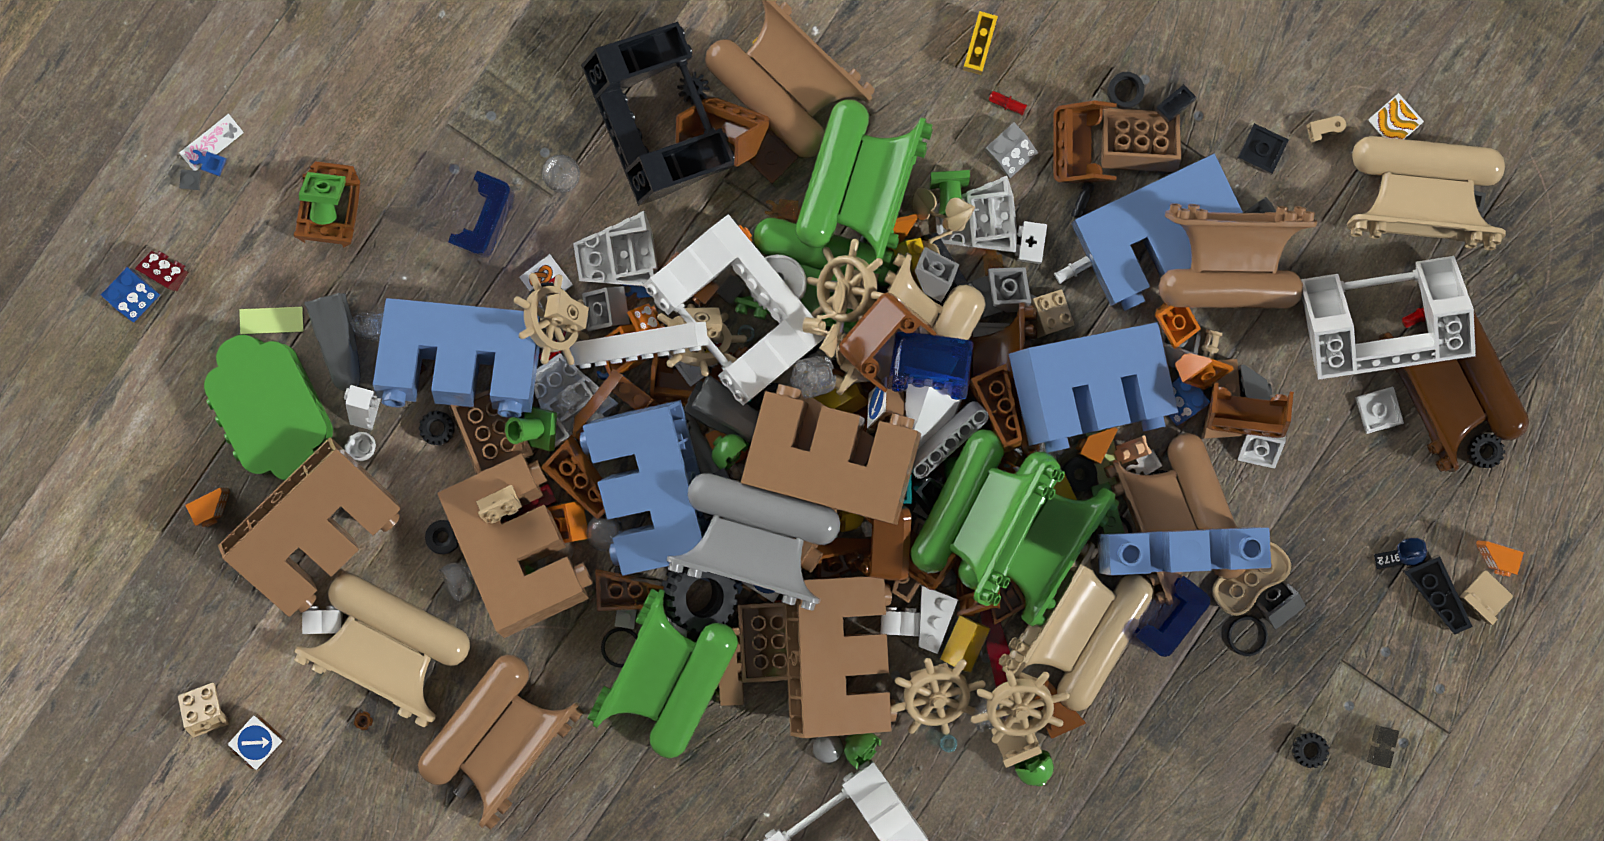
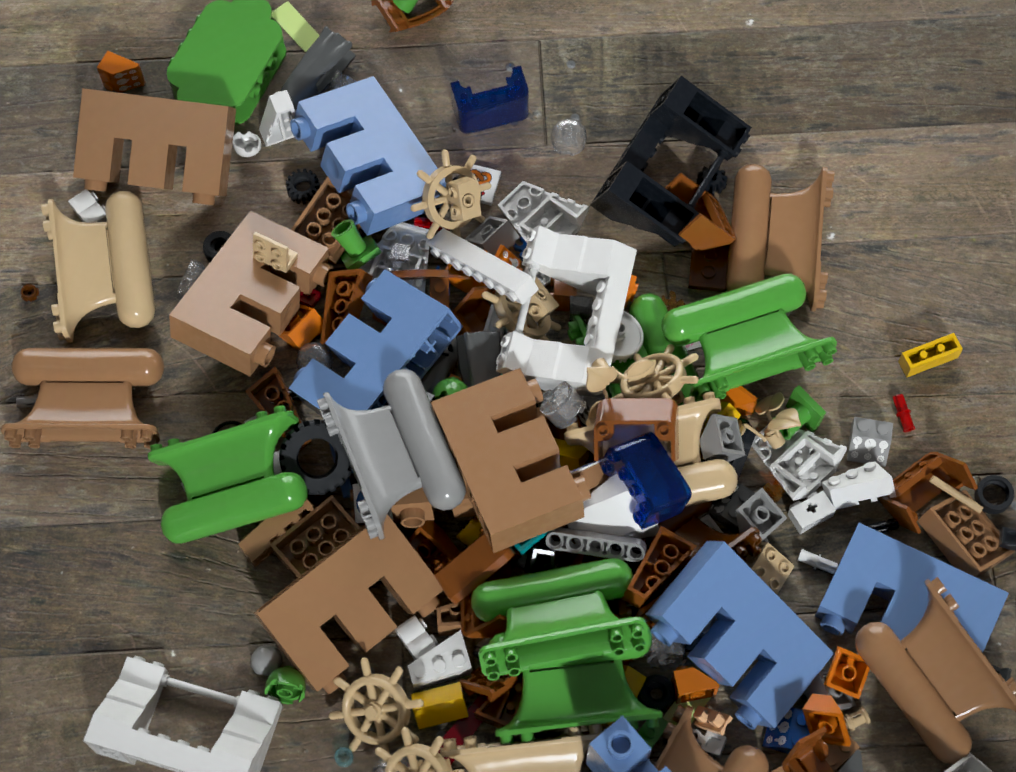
camera: 55 degrees right, 20 degrees down
(1041, 190) = (858, 485): none -> white wedge
(1104, 121) = (956, 494): none -> tan bar

